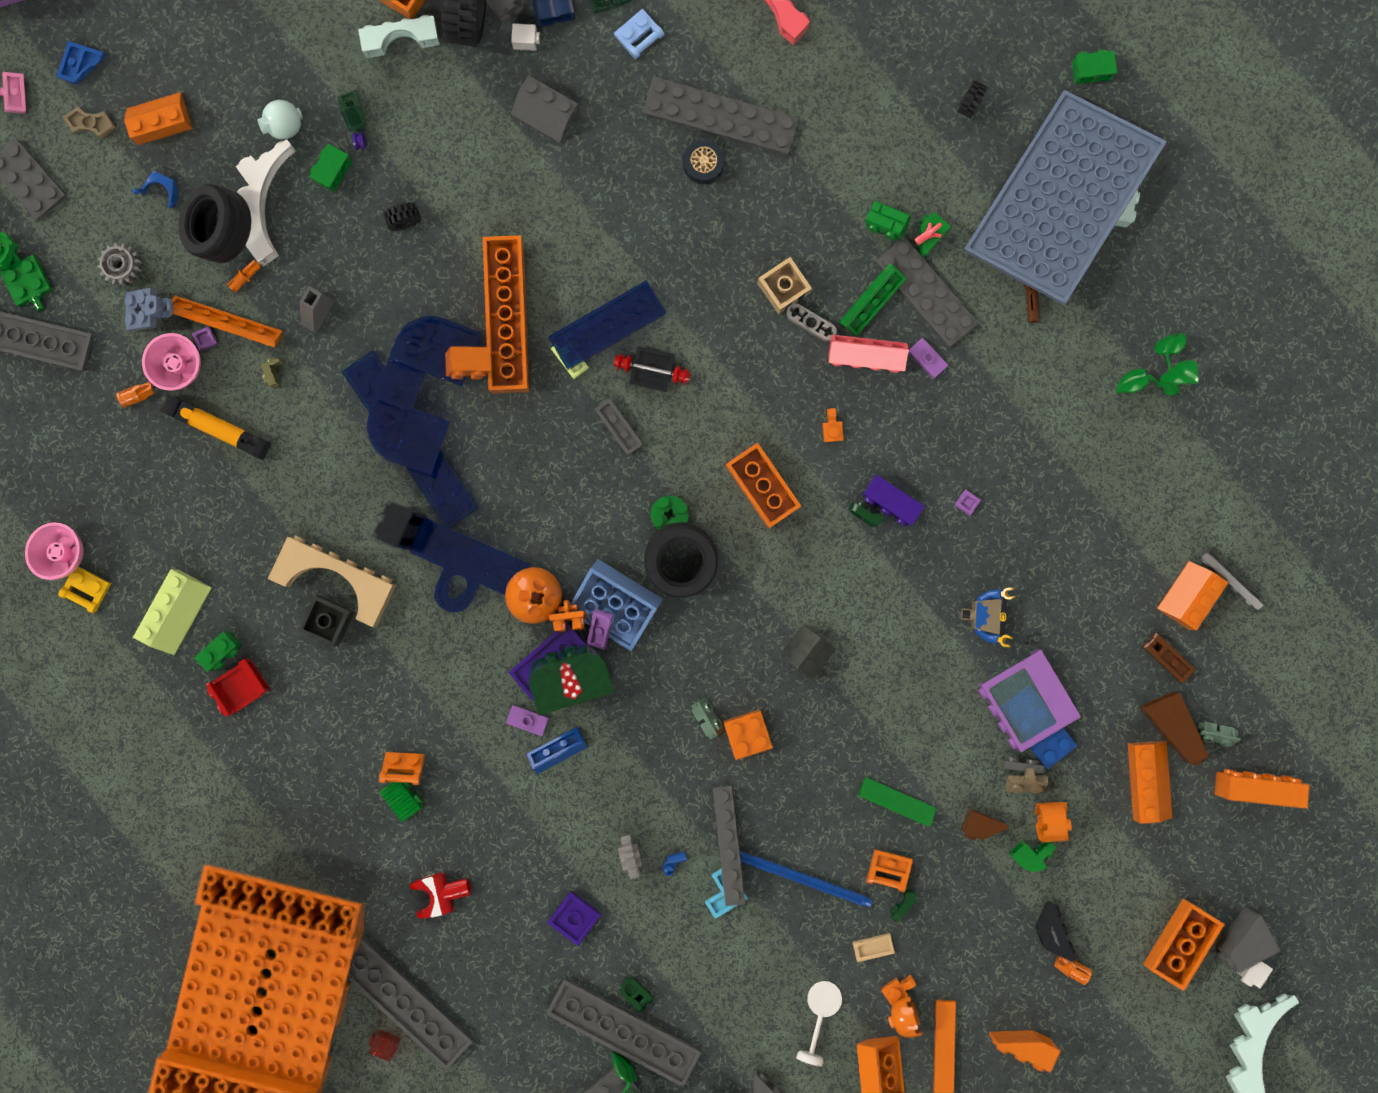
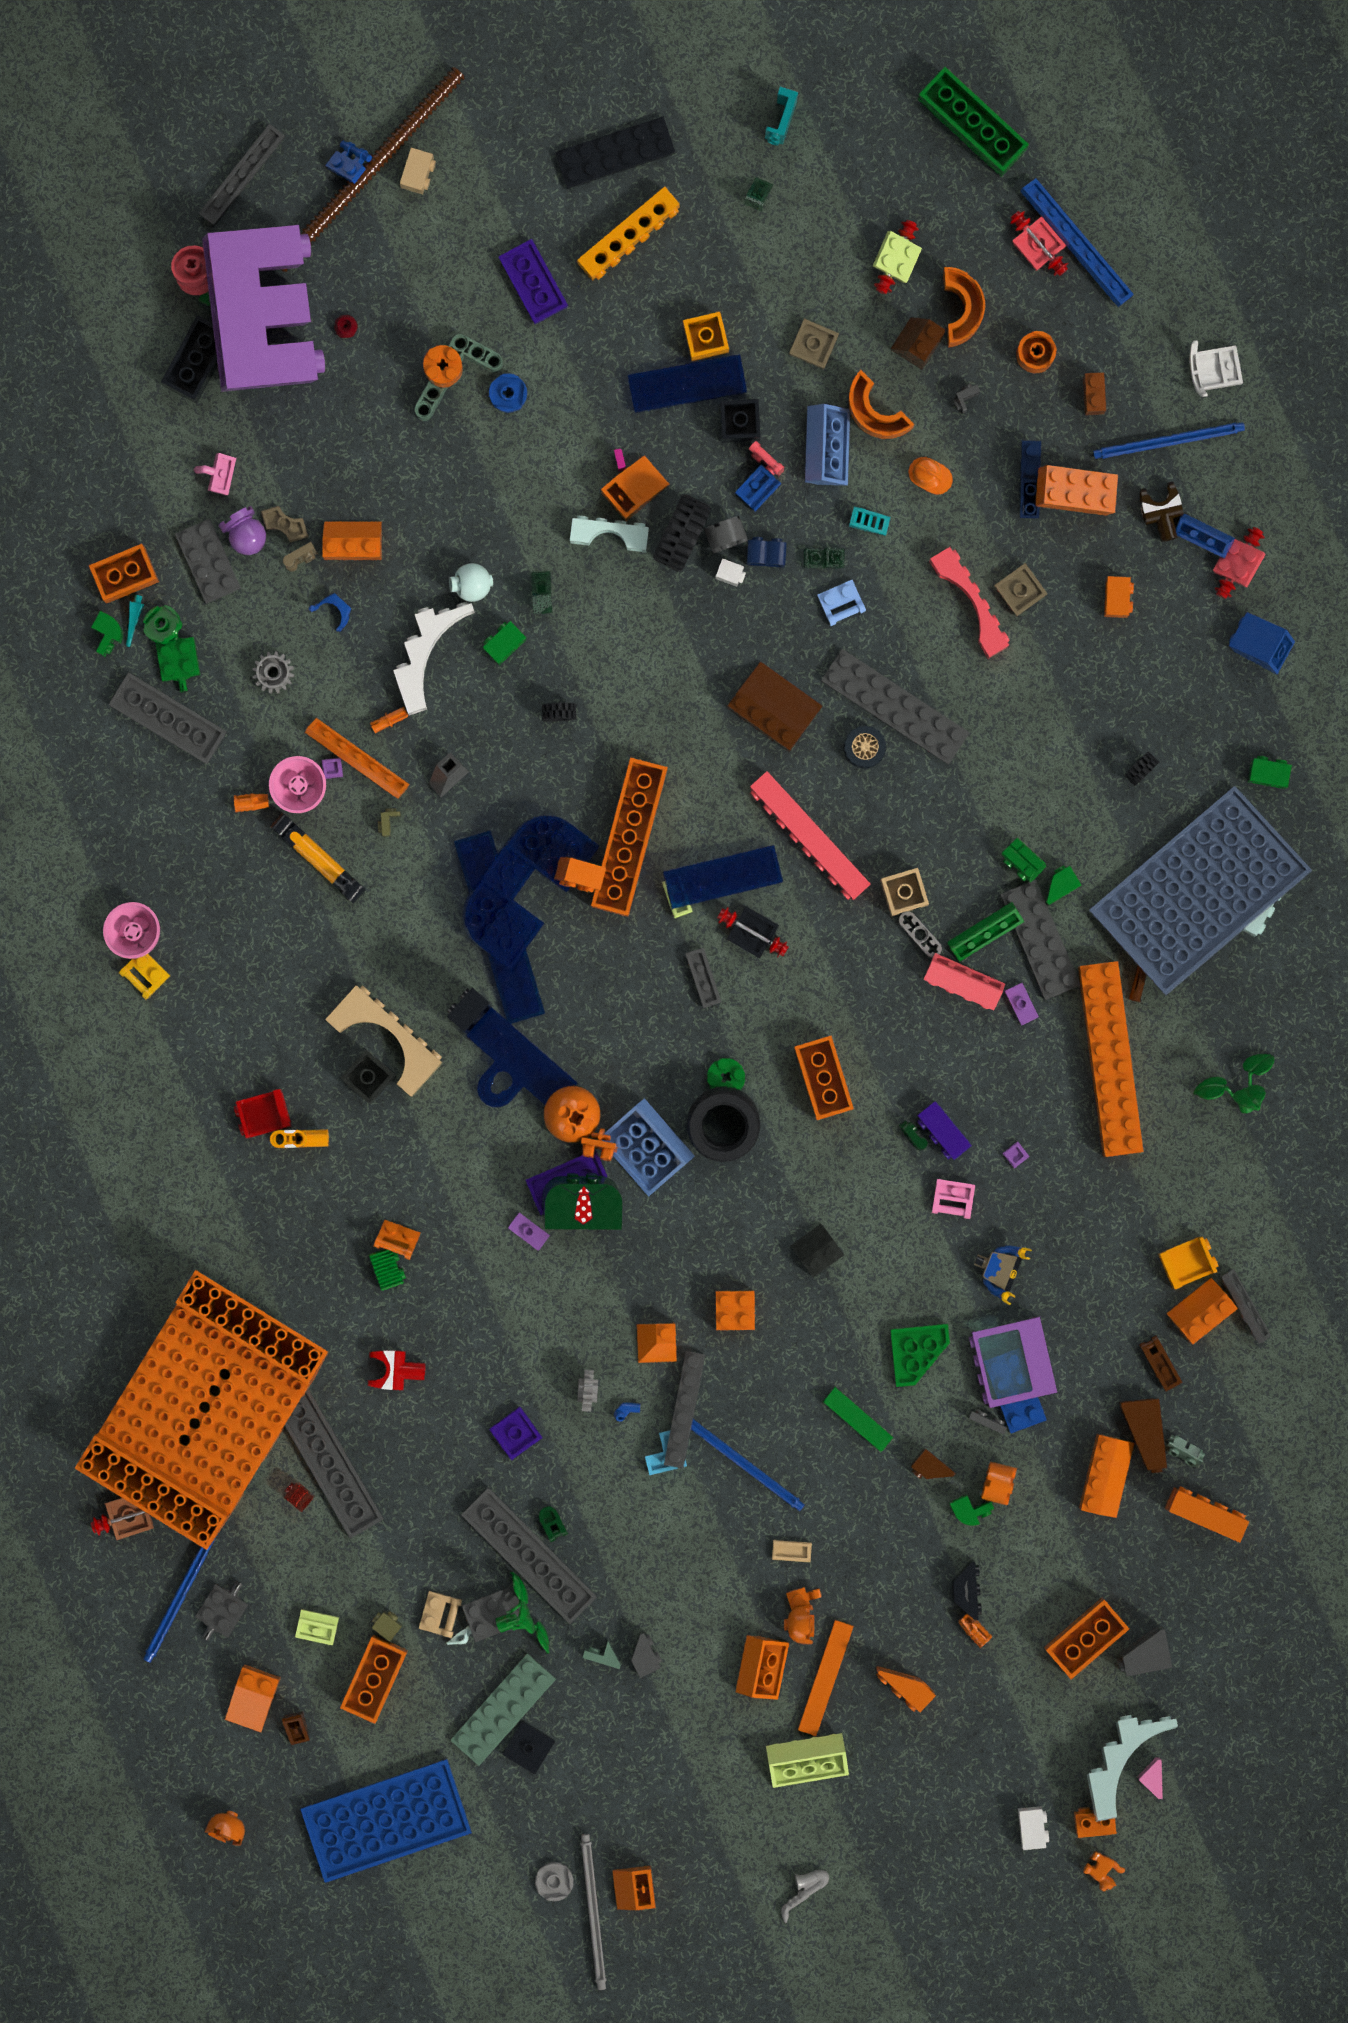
camera: 20 degrees right, 0 degrees up
(48, 137) = (245, 533): none -> medium lavender tile
(78, 62) = (292, 463): blue wing -> none
(113, 140) = (304, 553): none -> dark tan plate
(144, 308) = (293, 724): sand blue plate -> none
(172, 612) = (223, 1022): yellowish green slope -> none
(197, 221) = (359, 660): black tyre -> none
(218, 651) = (256, 1073): green brick -> none
(285, 698) = (310, 1138): none -> light orange connector
(359, 141) = (539, 624): dark purple bush -> none
(544, 109) = (727, 649): dark grey slope -> none
(557, 750) = (548, 1269): blue slope -> none
(600, 629) = (625, 1166): medium lavender plate -> none
(605, 151) = (774, 706): none -> reddish brown slope
(677, 261) = (810, 836): none -> coral brick
(682, 788) = (656, 1342): none -> orange slope
(712, 725) = (700, 1274): sand green hinge -> none
(824, 1001) = (728, 1587): white piece -> none
(832, 430) = (908, 1044): orange plate -> none
(891, 864) = (832, 1476): orange plate -> none
(898, 911) = (826, 1522): dark green plate -> none
(920, 556) = (954, 1192): none -> bright pink plate
(929, 233) = (1057, 886): coral bar -> none
(933, 718) = (916, 1351): none -> green plate
(1026, 783) = (987, 1439): dark tan hinge -> none
(1029, 383) = (1110, 1059): none -> orange brick
(1163, 552) = (1188, 1262): none -> light orange panel
(1256, 974) = (1146, 1686): white brick -> none
(1287, 1057) = (1152, 1777): none -> bright pink slope

